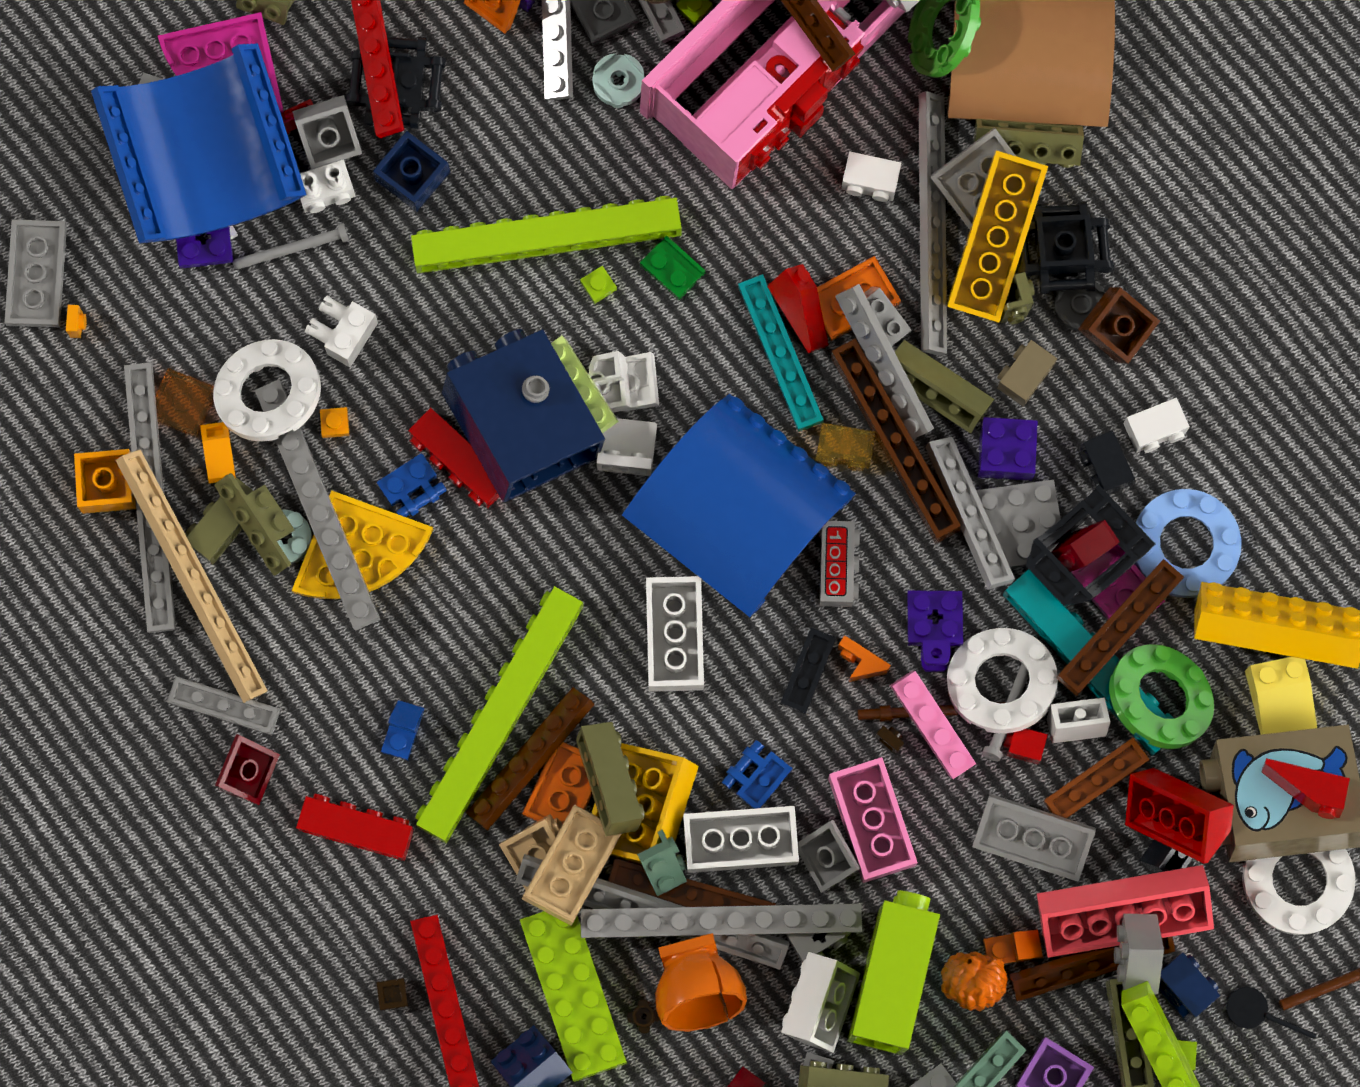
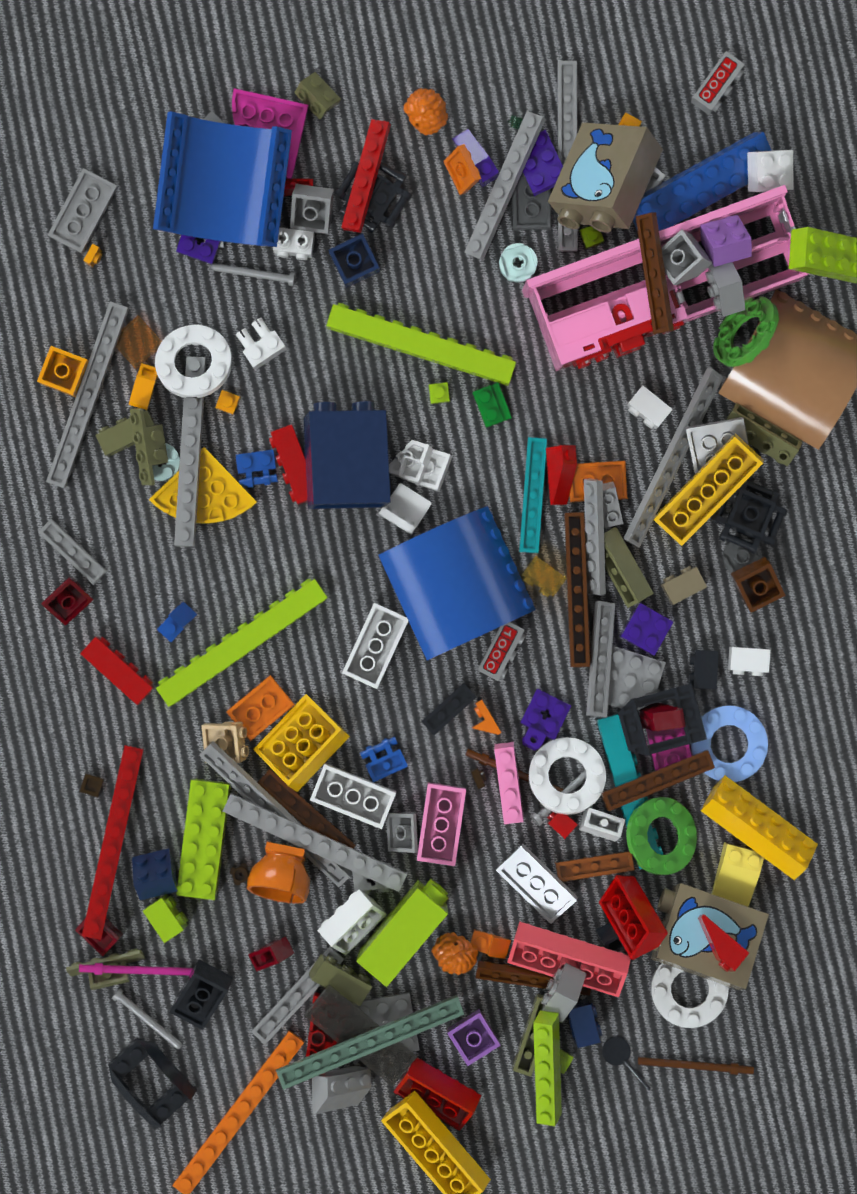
camera: 25 degrees right, 10 degrees up
(191, 575) = (88, 460): tan plate -> none
(530, 758) = (247, 679): reddish brown plate -> none
(535, 389) = (361, 449): light grey plate -> none
(571, 866) = (239, 763): tan tile -> none
(589, 392) = (396, 456): yellowish green plate -> none
(609, 778) = (289, 719): olive brick -> none
(662, 865) = (296, 790): sand green bracket -> none
(1021, 300) = (705, 534): olive bracket -> none

